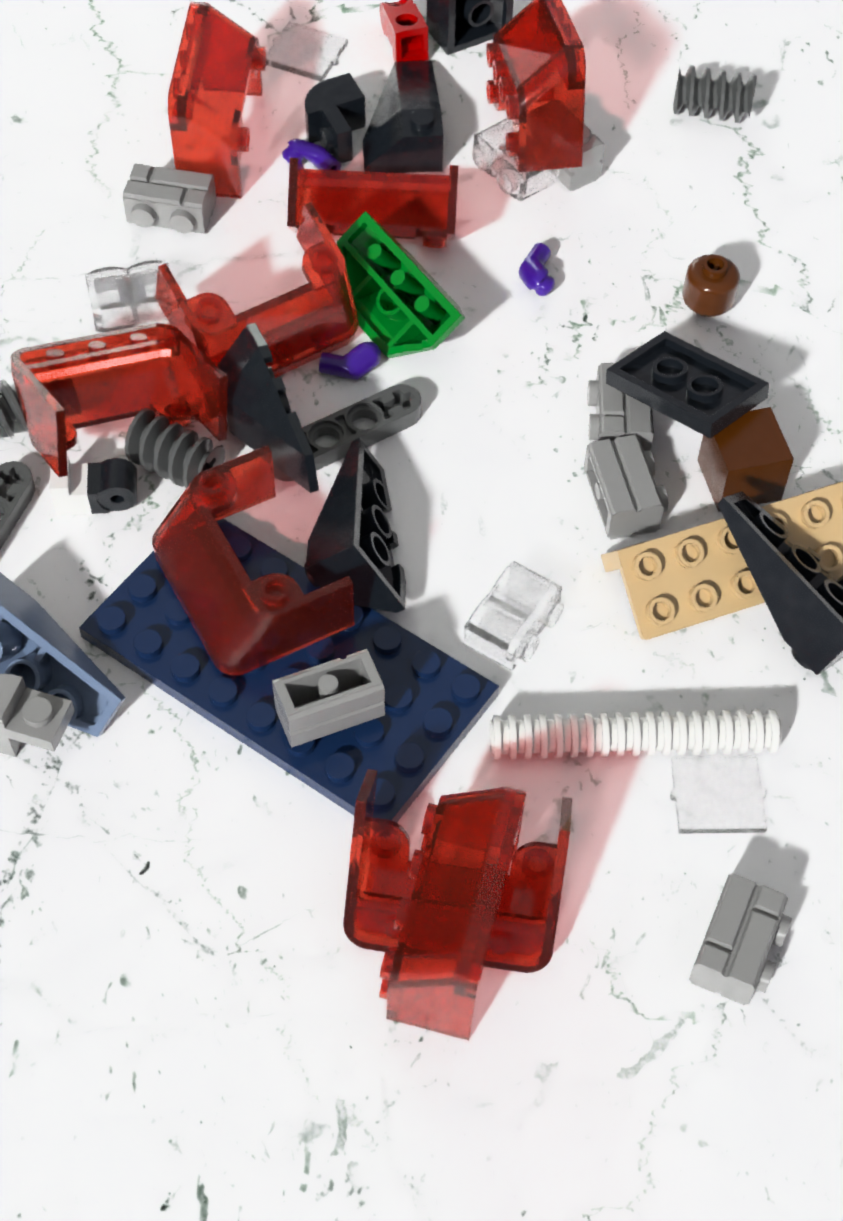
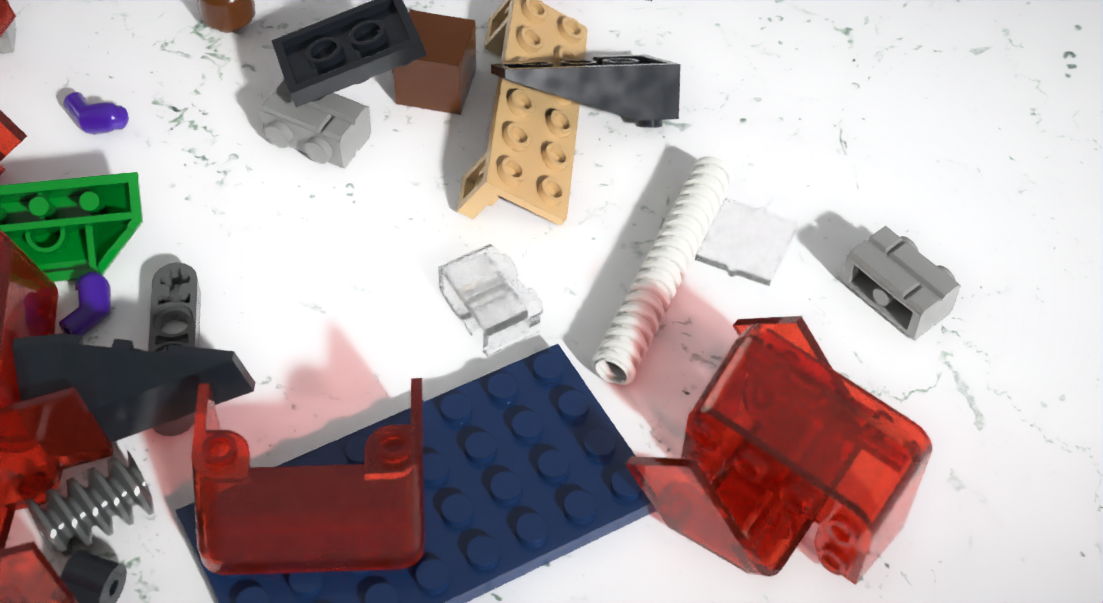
camera: 65 degrees left, 5 degrees down
(329, 697) = (521, 467): light grey brick -> none
(356, 537) = (327, 383): black wedge -> none
(625, 486) = (400, 158): light grey brick -> none

